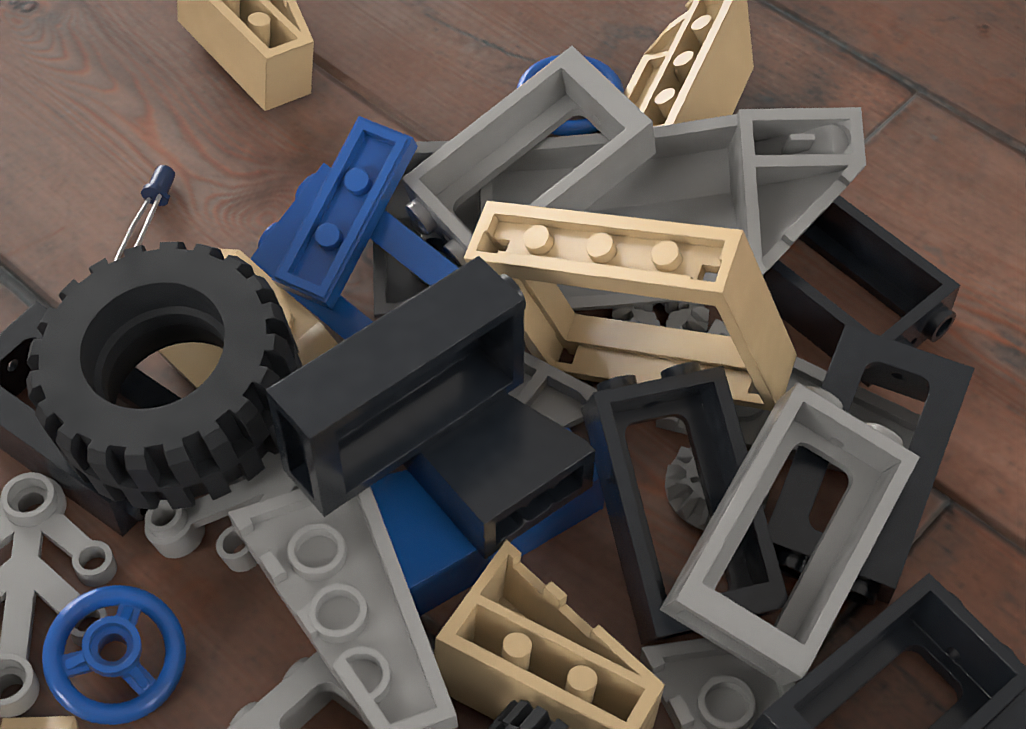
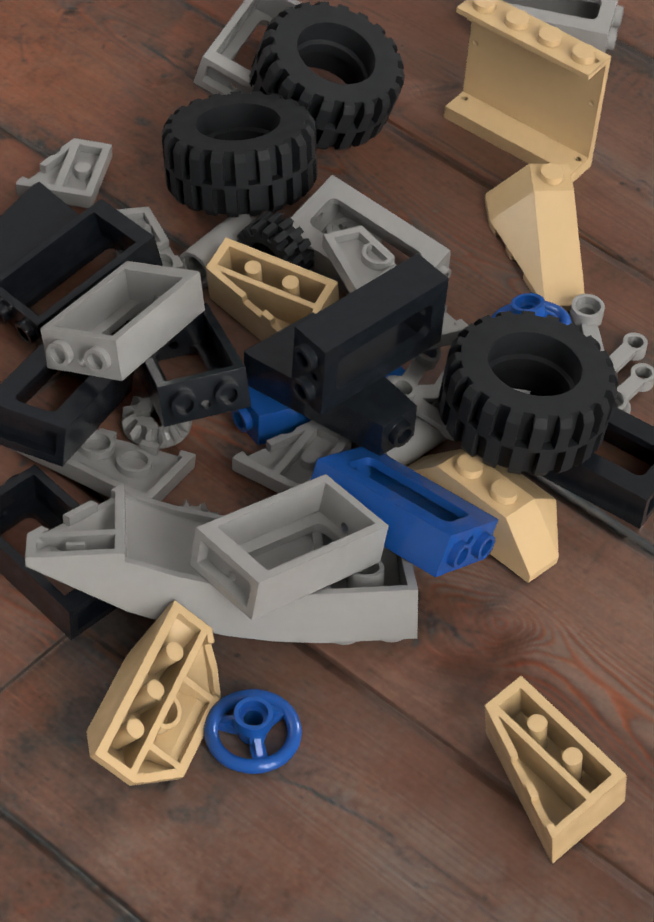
camera: 175 degrees right, 5 degrees down
(154, 193) = (594, 629): piece -> none
(345, 212) = (426, 502): blue tile -> none
(642, 259) = (239, 364): tan window -> none

